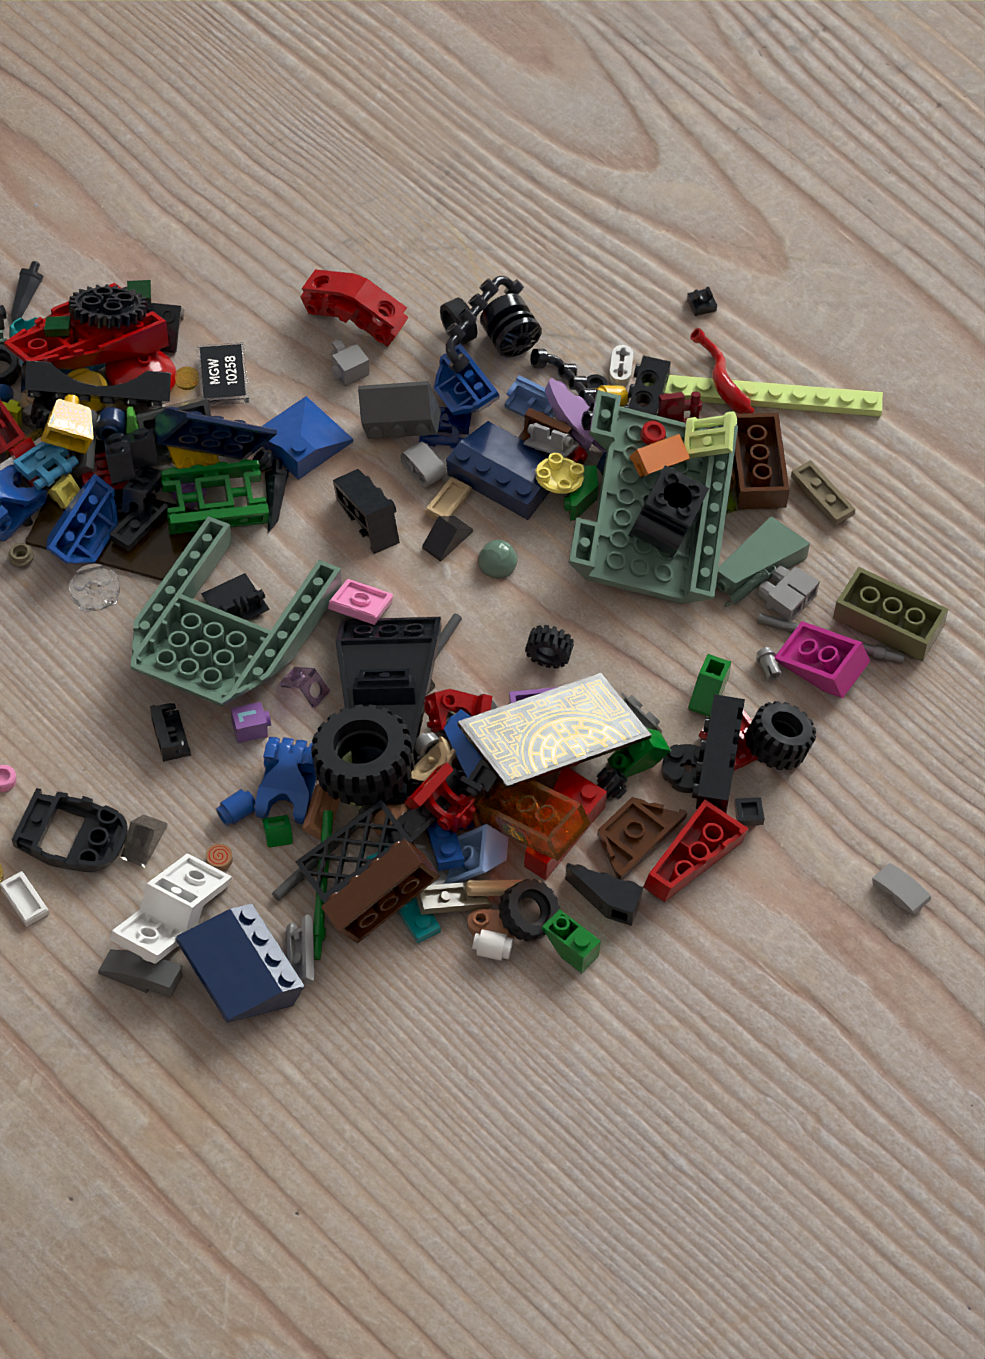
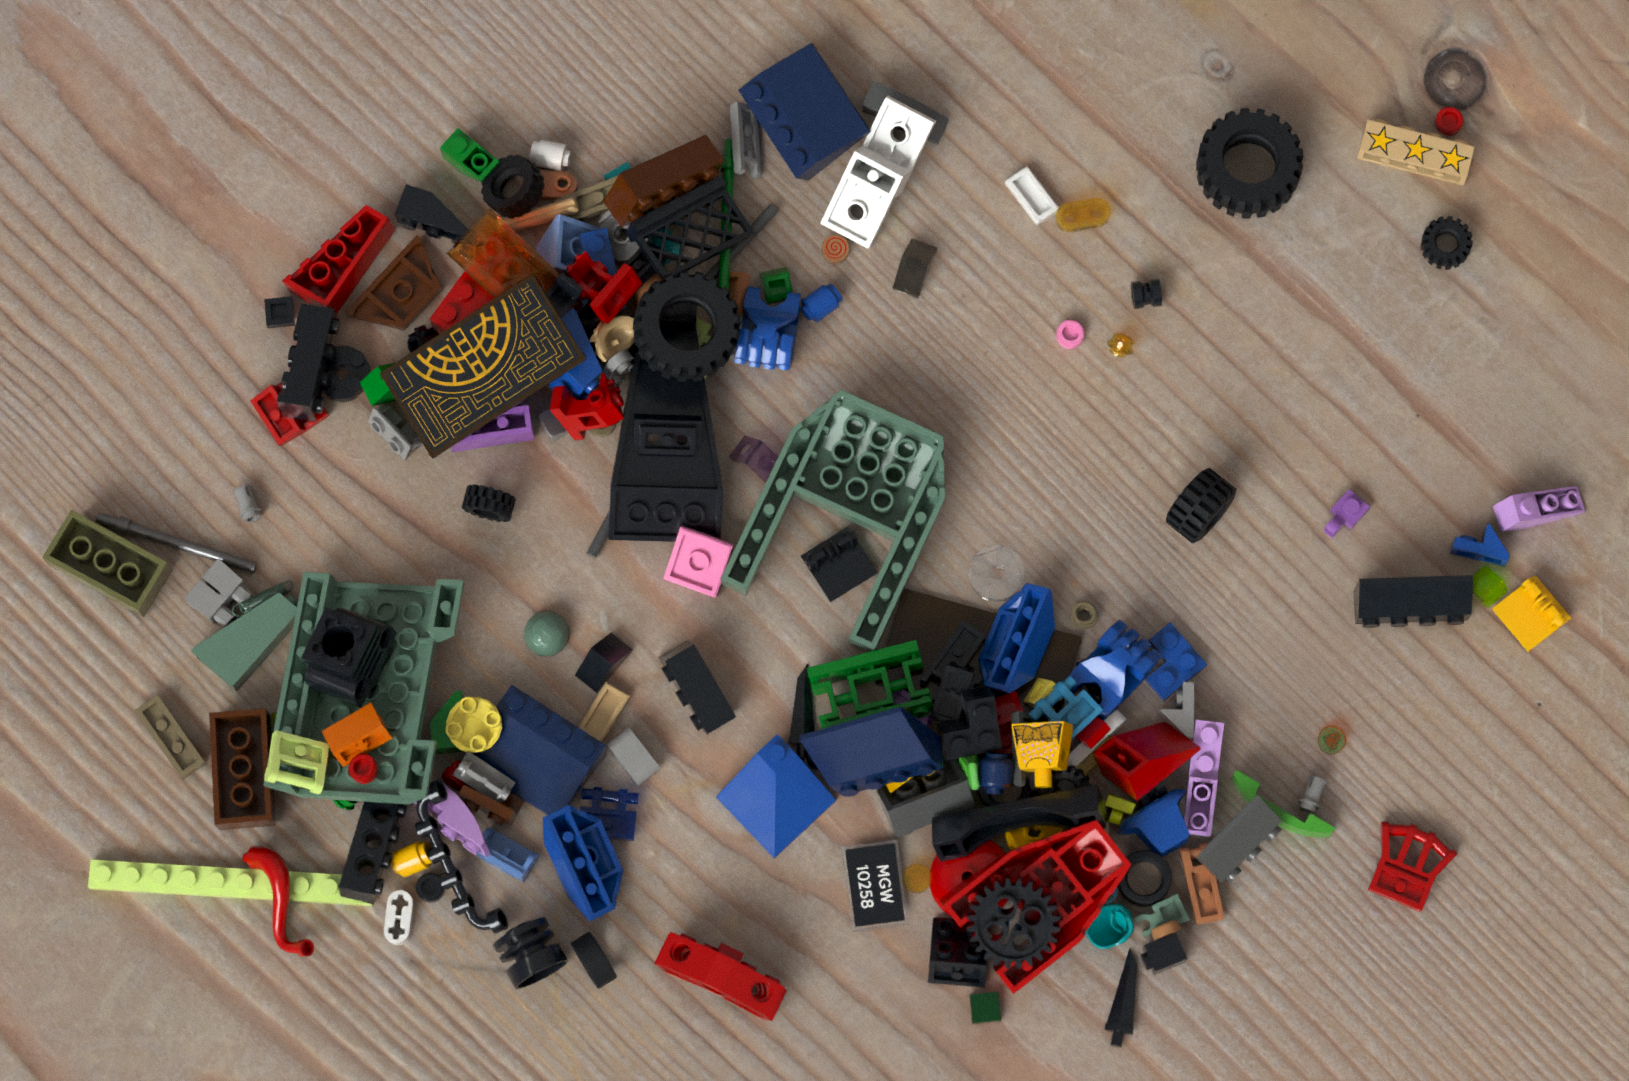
camera: 175 degrees left, 20 degrees up
(57, 326) = (1070, 888): dark green tile -> none
(97, 840) = (963, 257): black slope -> none
(169, 732) = (897, 389): black hinge -> none
(250, 722) = (808, 401): medium lavender brick -> none
(348, 363) = (724, 900): light grey brick -> none
(398, 410) = (661, 810): dark grey slope -> none
(468, 317) = (567, 958): black bar -> none
(674, 404) = (339, 822): dark red plate -> none
(702, 301) = (296, 1023): black tile -> none
(710, 681) = (313, 465): green slope -> none
(780, 735) = (220, 395): black tyre -> none
(823, 658) = (188, 506): dark pink slope -> none
(904, 889) = (126, 236): light grey slope -> none

